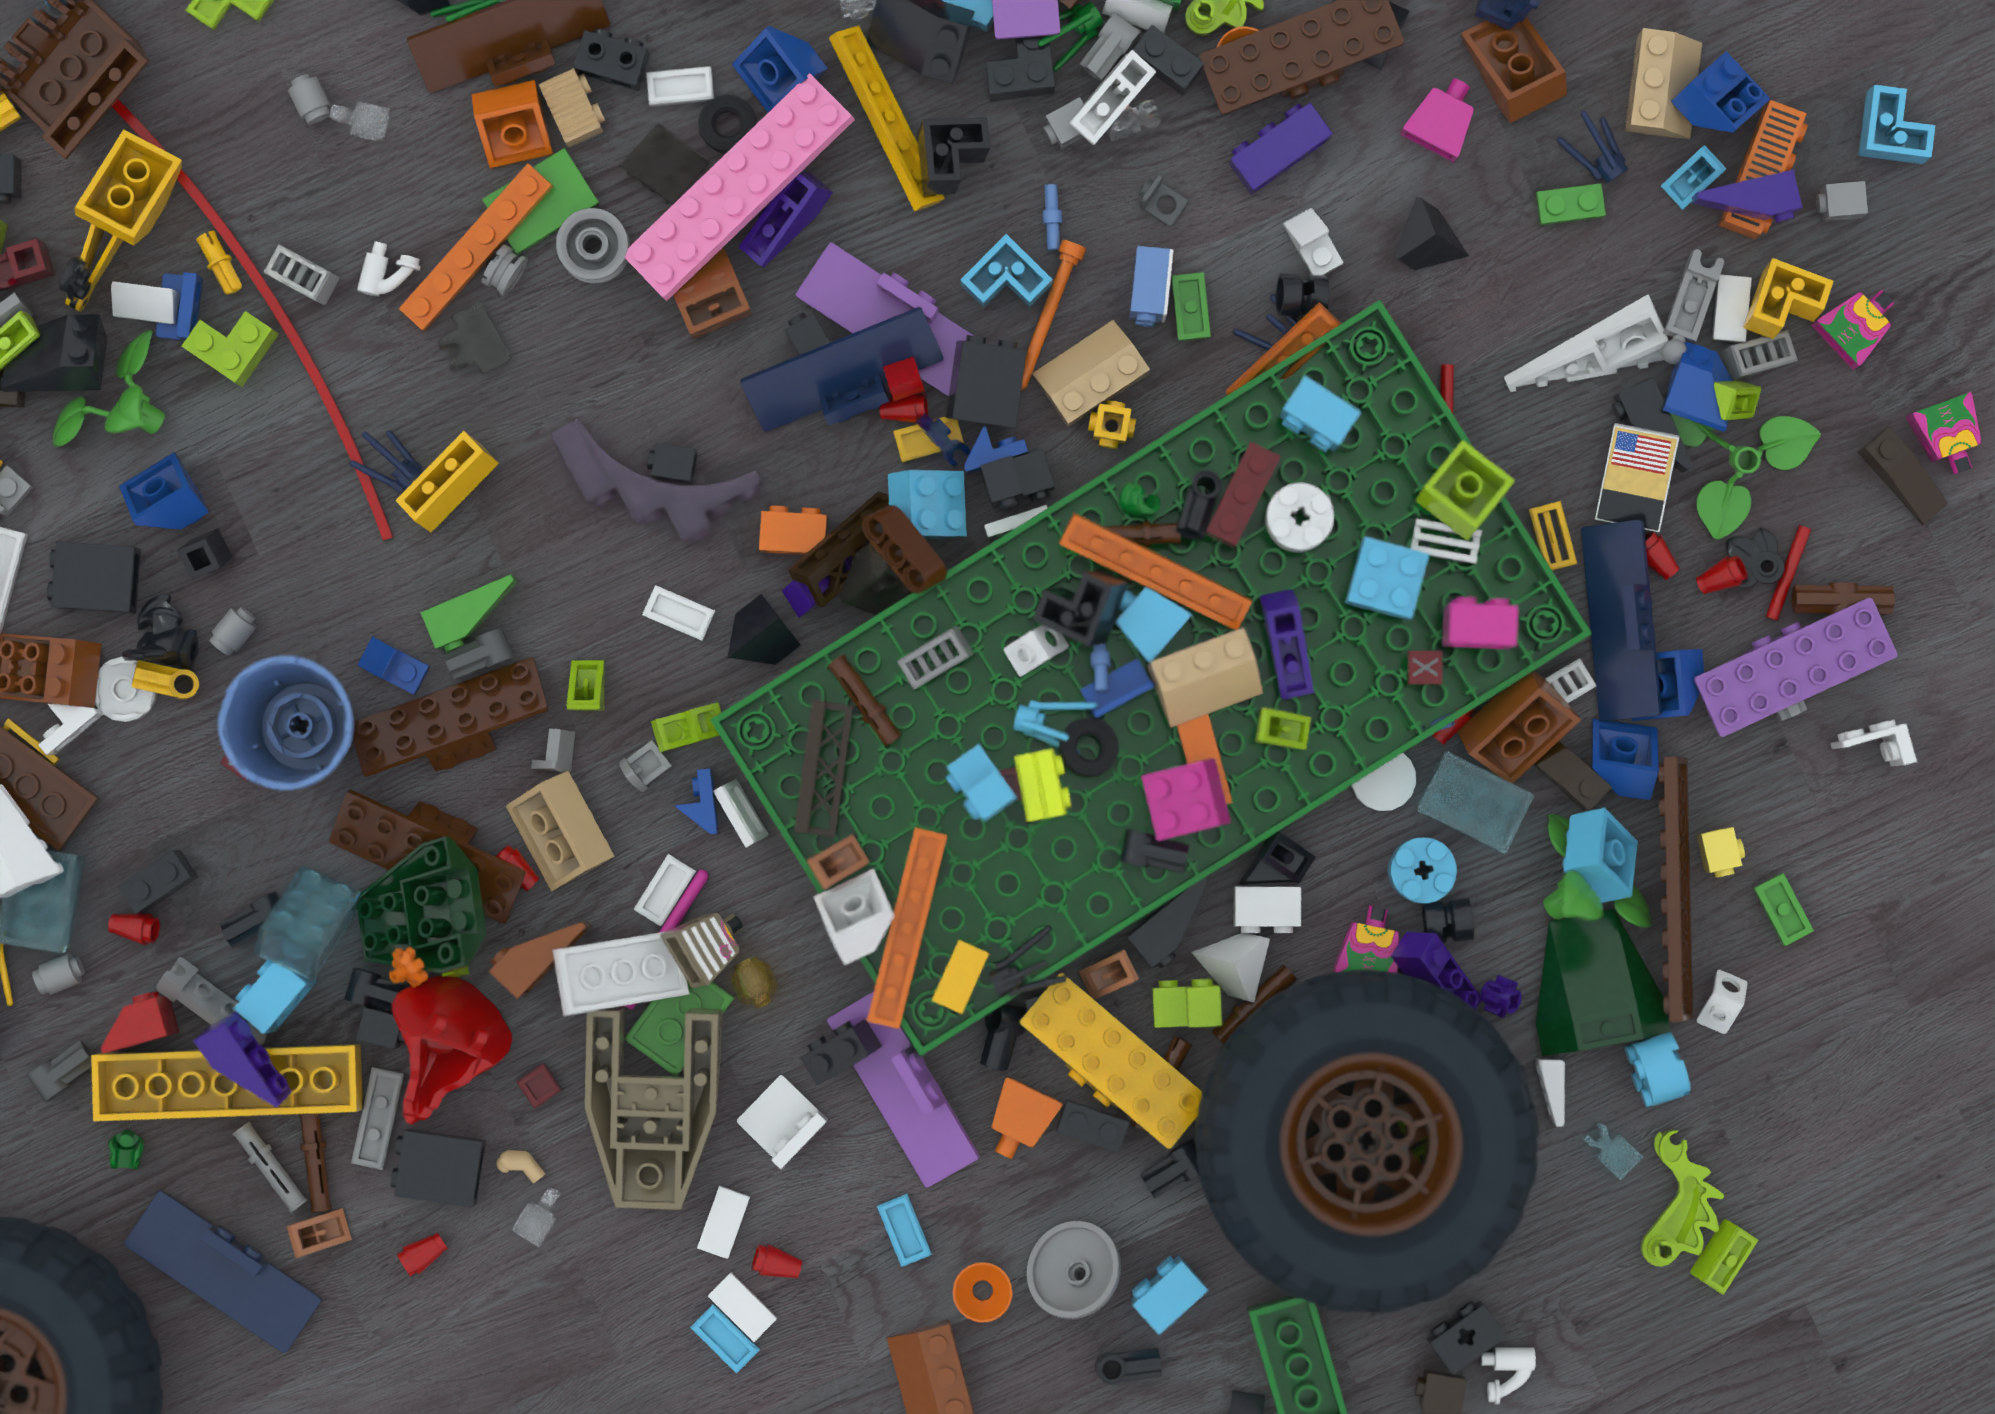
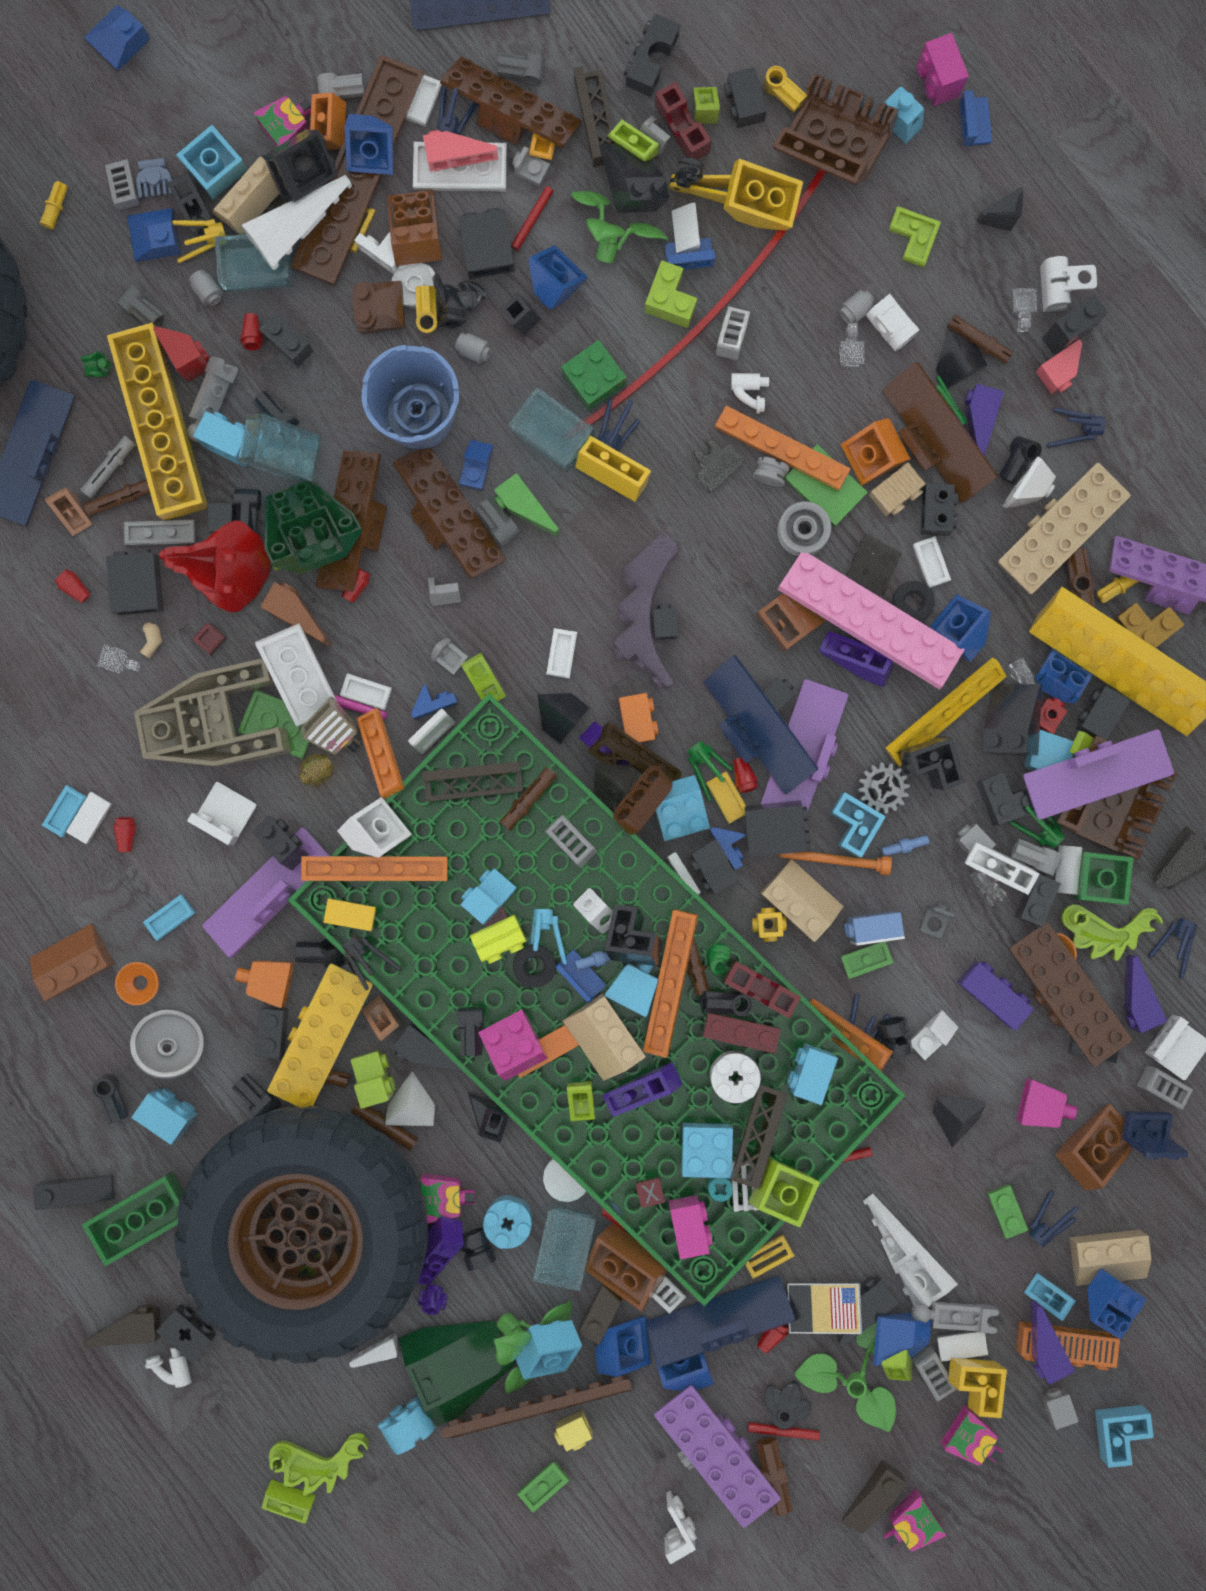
camera: 75 degrees right, 0 degrees up
(75, 507) = (532, 218): none -> red bar
(144, 744) = (378, 306): none -> reddish brown slope
(219, 263) = (726, 274): yellow axle -> none
(238, 1056) = (173, 422): dark purple slope -> none
(313, 476) = (593, 375): none -> green brick
(344, 57) = (892, 323): none -> white piece
(373, 550) = (551, 429): none -> clear light blue brick
(407, 968) = (263, 524): orange plant -> none
(559, 830) = (389, 608): tan slope -> none
(586, 686) = (494, 601): lime slope -> none
(723, 1222) = (145, 790): white tile -> none
(753, 887) = (380, 753): none -> orange tile
(838, 861) = (409, 807): nougat slope -> none
(861, 458) = (701, 754): none -> green plant
(903, 378) = (764, 769): red brick -> none
(938, 434) = (731, 804): clear blue plate -> none
(975, 214) = (879, 799): none -> light grey gear
(1192, 453) = (761, 989): none -> arch
(1267, 907) = (454, 1117): white brick -> none
(1388, 498) = (764, 1138): none -> dark brown fence
(1435, 577) = (717, 1184): none -> teal wheel
(1615, 1154) = (342, 1407): clear light blue plate -> none
(1722, 1004) = (464, 1460): white bracket -> none
(1723, 575) = (770, 1386): red cone -> none

